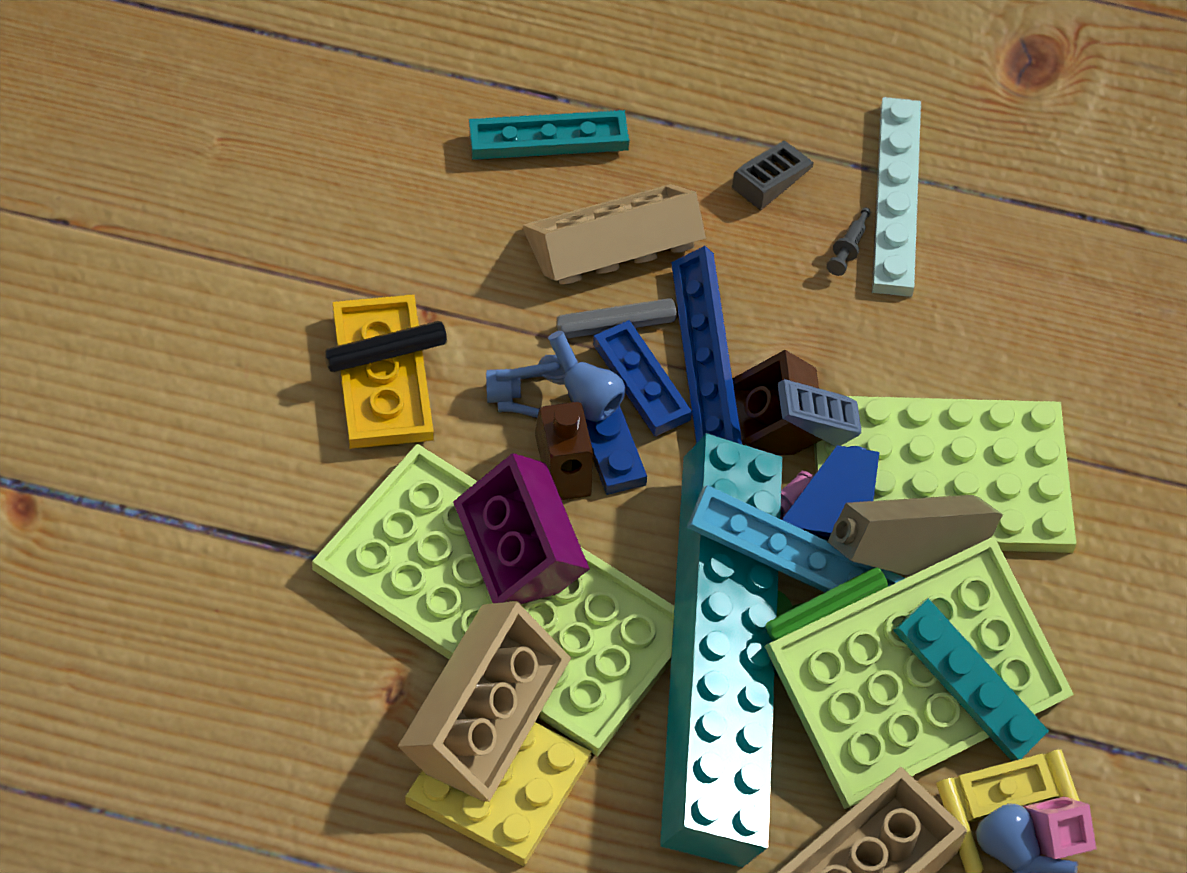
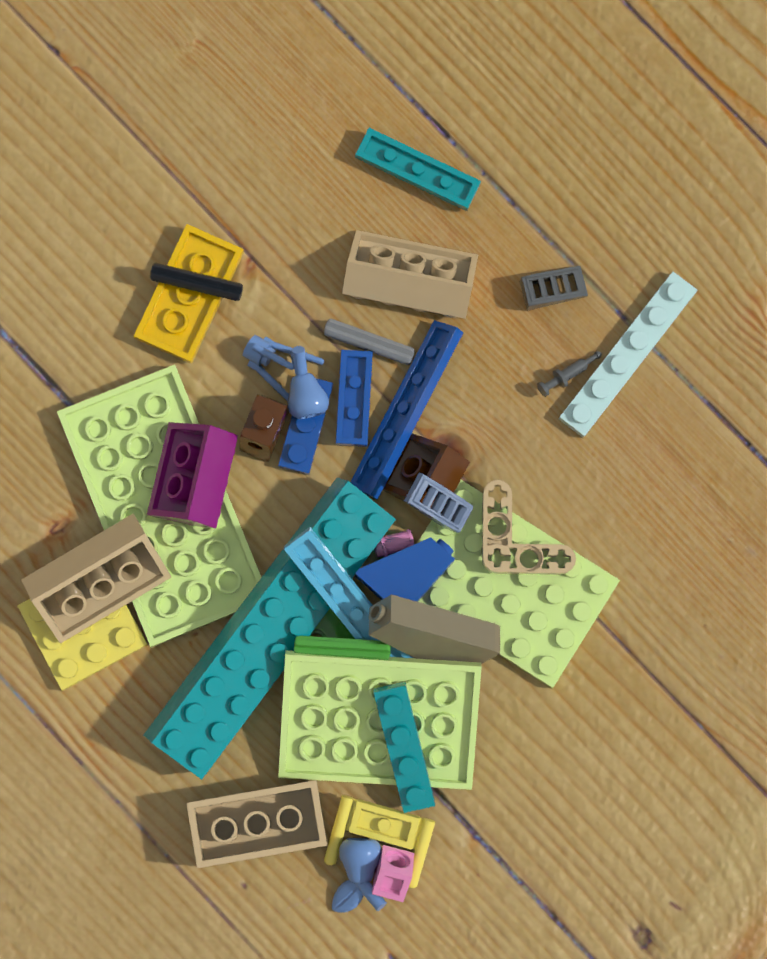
camera: 30 degrees right, 25 degrees up
(918, 425) = (504, 542): none -> tan beam

